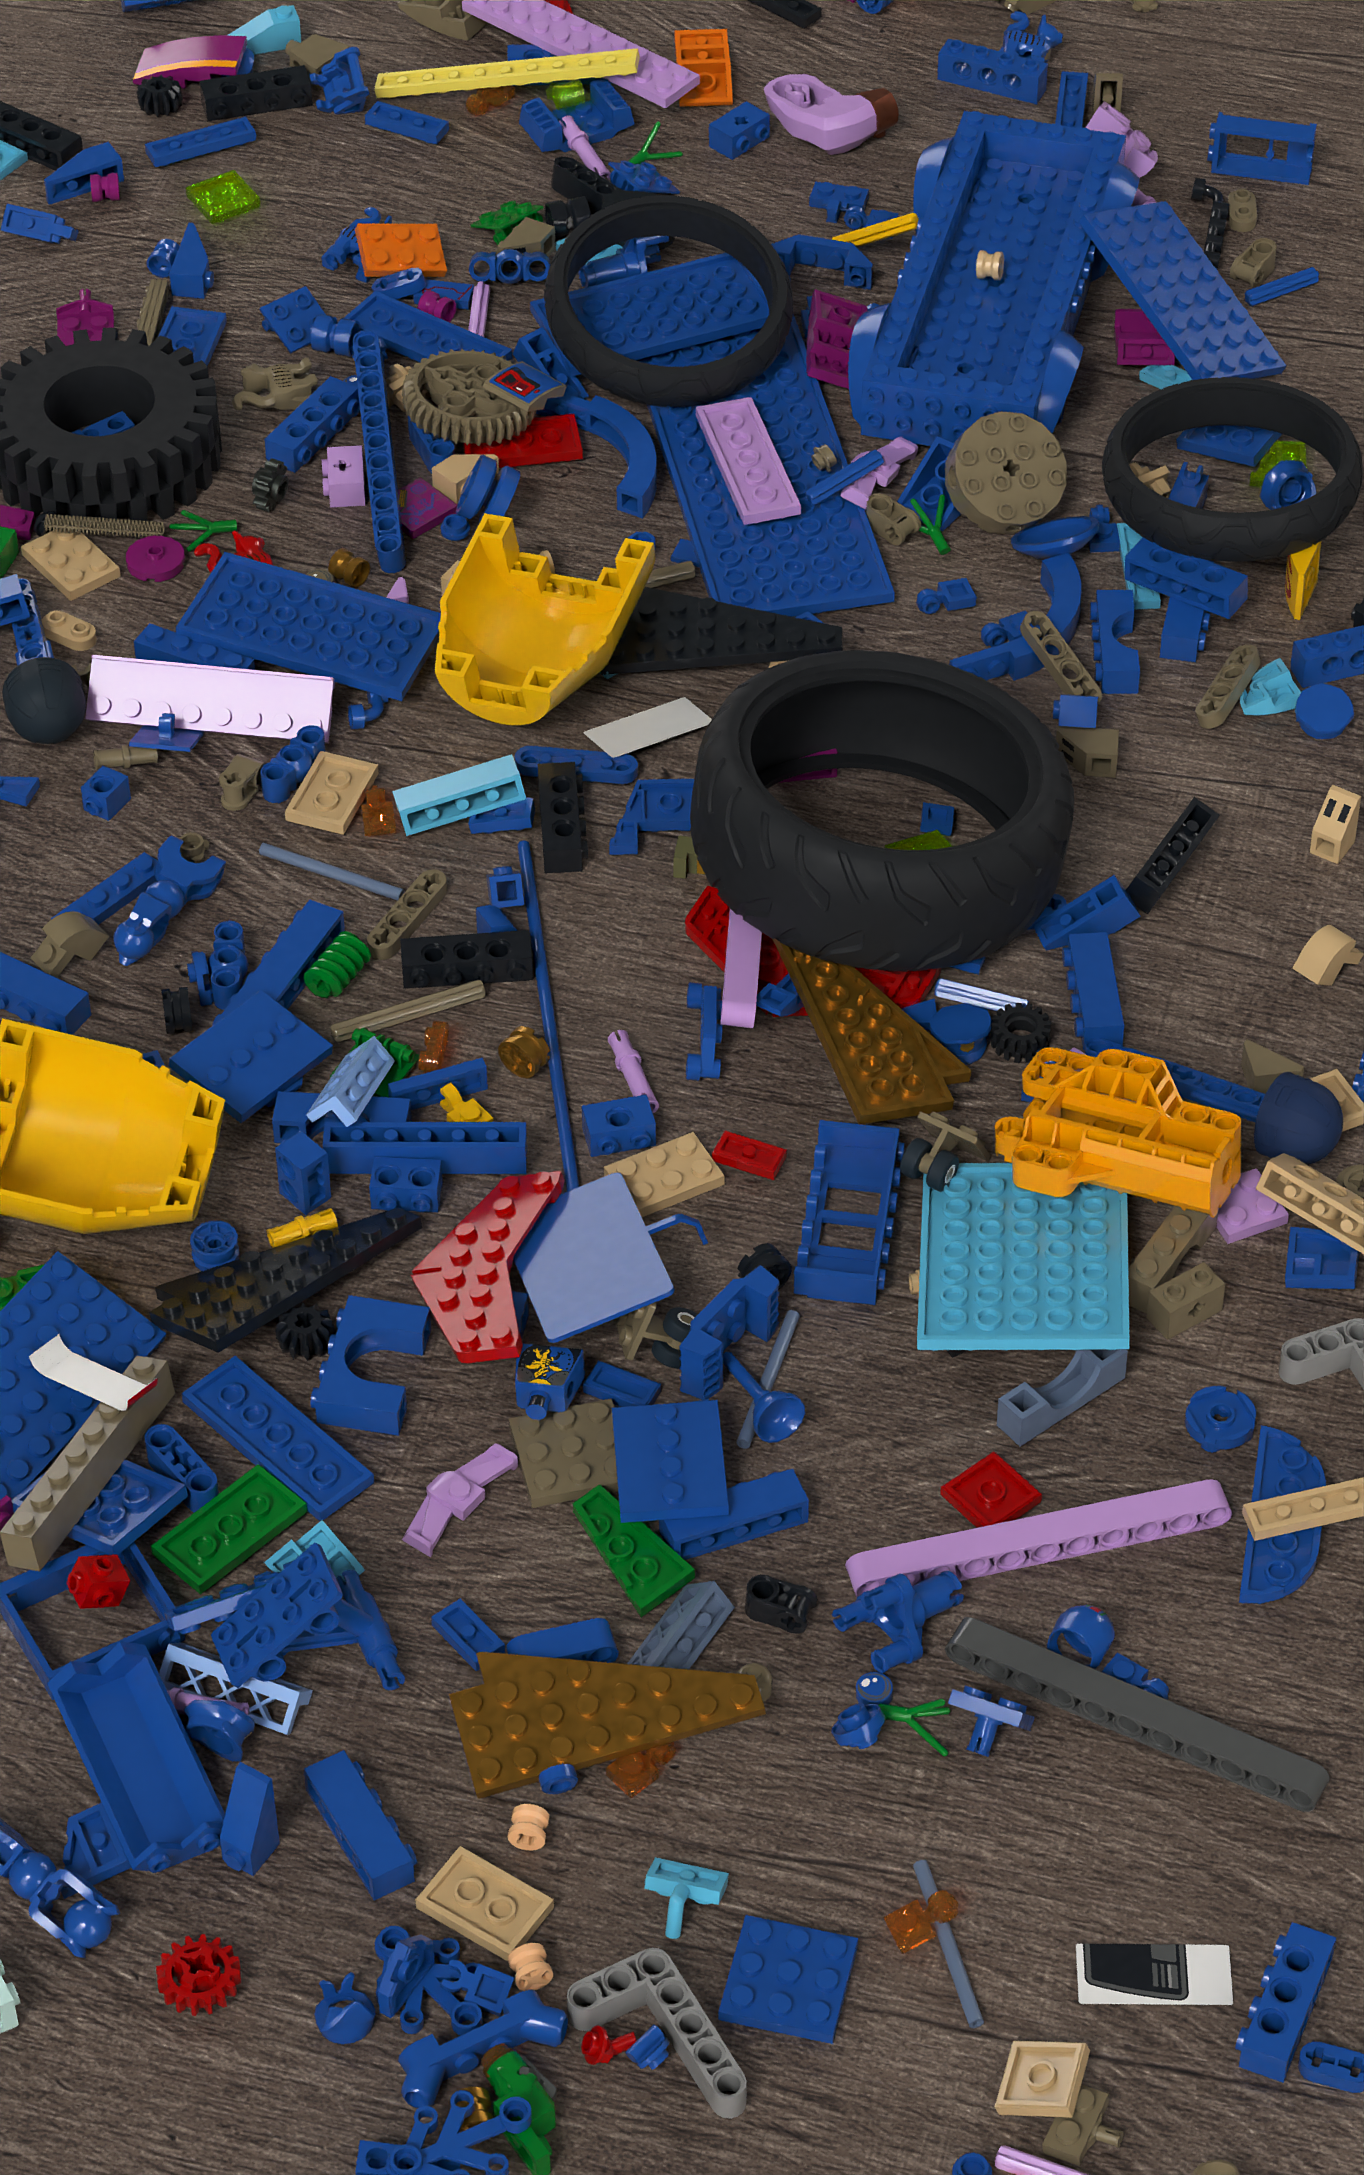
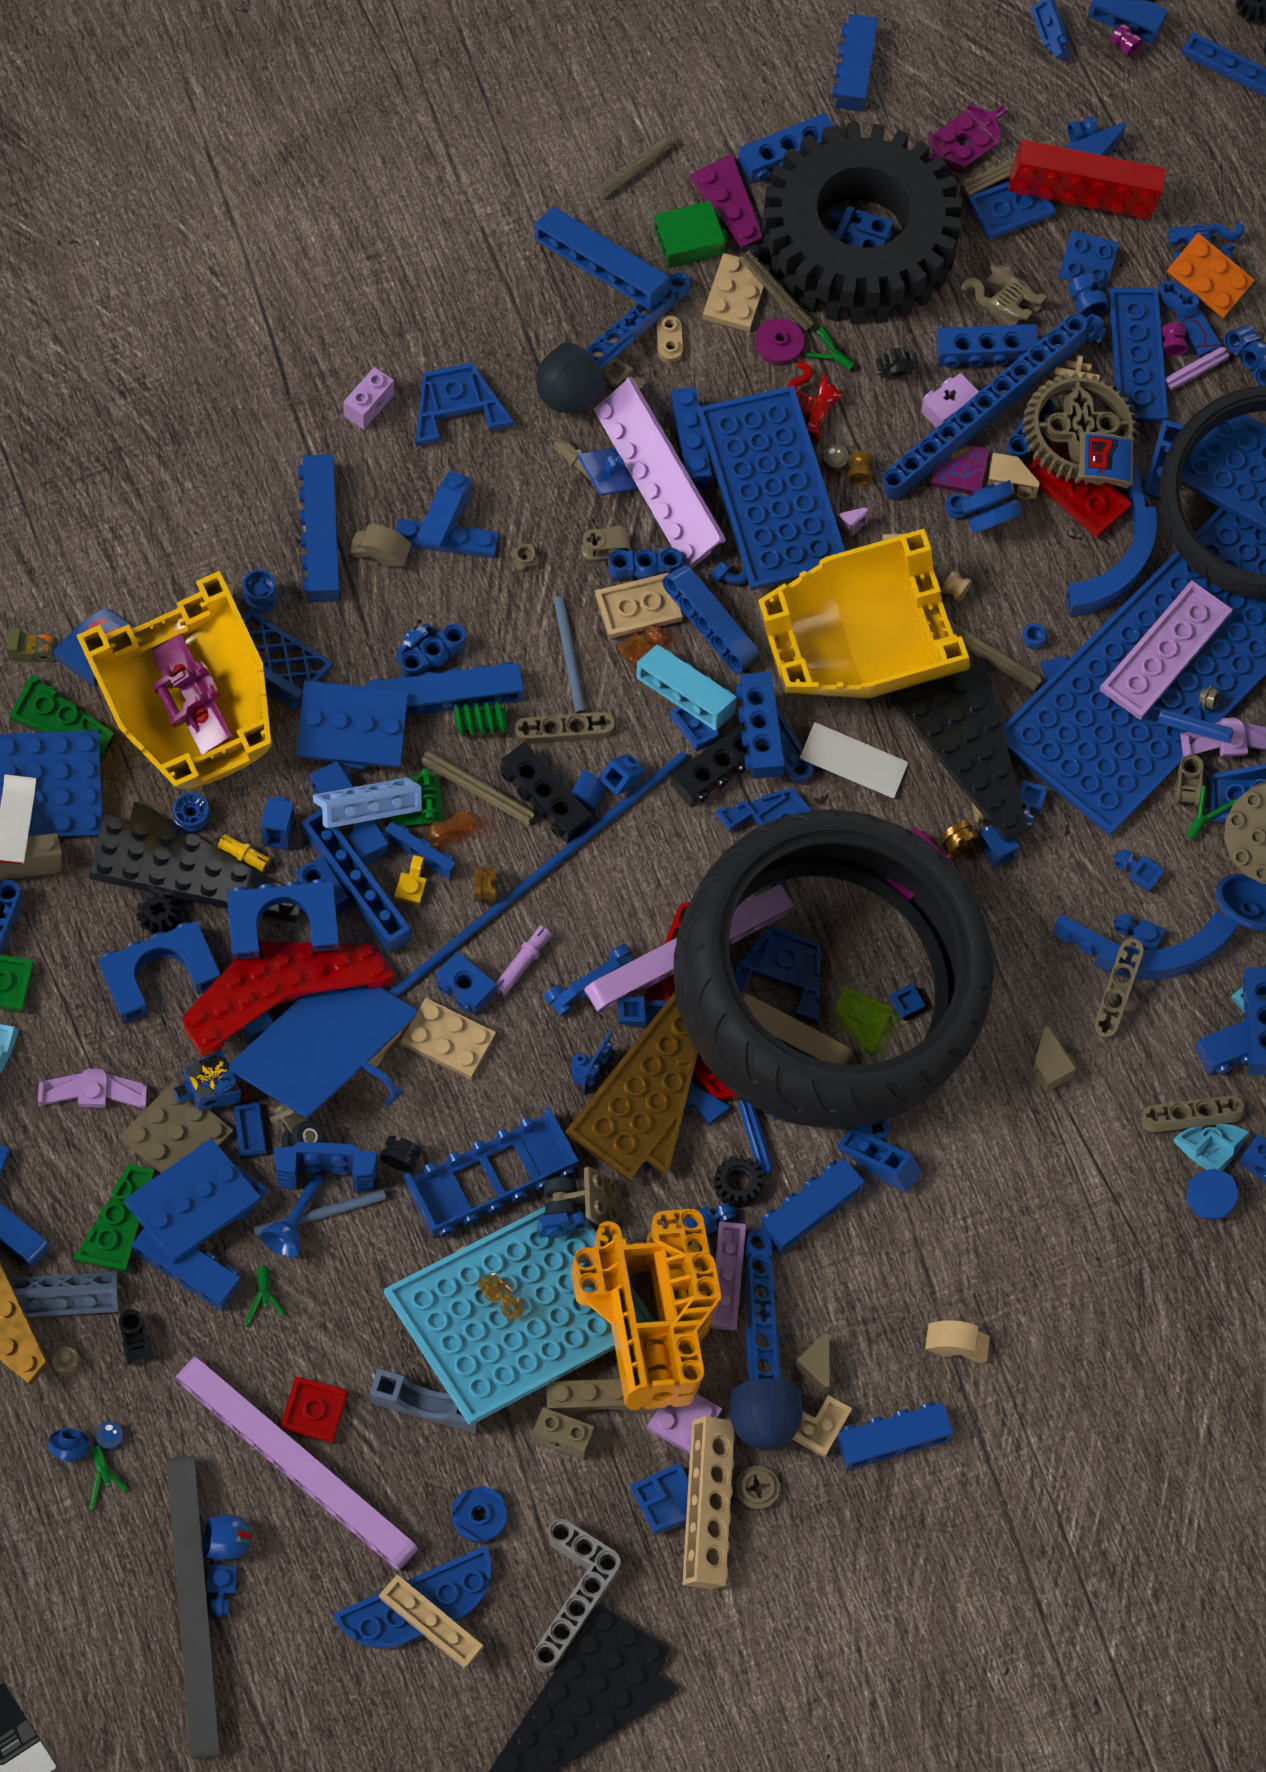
camera: 50 degrees right, 20 degrees up
(82, 867) = (446, 508): none -> blue slope
(88, 1161) = (197, 688): none -> magenta piece
(105, 793) = (535, 462): blue brick -> none
(163, 900) = (458, 575): blue piece -> none
(177, 1010) = (368, 651): black wheel -> none
(222, 267) = (1086, 179): none -> red brick
(223, 197) = (1181, 120): clear neon green plate -> none
(278, 1437) = (64, 956): blue plate -> none
(392, 733) = (711, 619): none -> blue beam
(424, 1178) = (248, 906): none -> blue arch
(559, 753) = (760, 687): none -> blue brick
(749, 1155) = (500, 1079): red plate -> none
(803, 1067) = (586, 1069): none -> blue hinge
(816, 1466) = (264, 1292): none -> green plant
(901, 1613) = (173, 1415): blue wheel -> none
(958, 1176) = (557, 1224): none -> blue plate
(962, 1030) = (710, 1142): blue hat -> none
(989, 1716) = (125, 1518): blue plate -> none
(994, 1251) = (496, 1290): none -> clear orange plate
(1076, 710) = (1073, 1030): blue brick -> none
(1118, 664) = (1203, 993): blue arch -> none
(1171, 854) = (977, 1178): black brick -> none
(1336, 825) = (1090, 1271): tan slope -> none

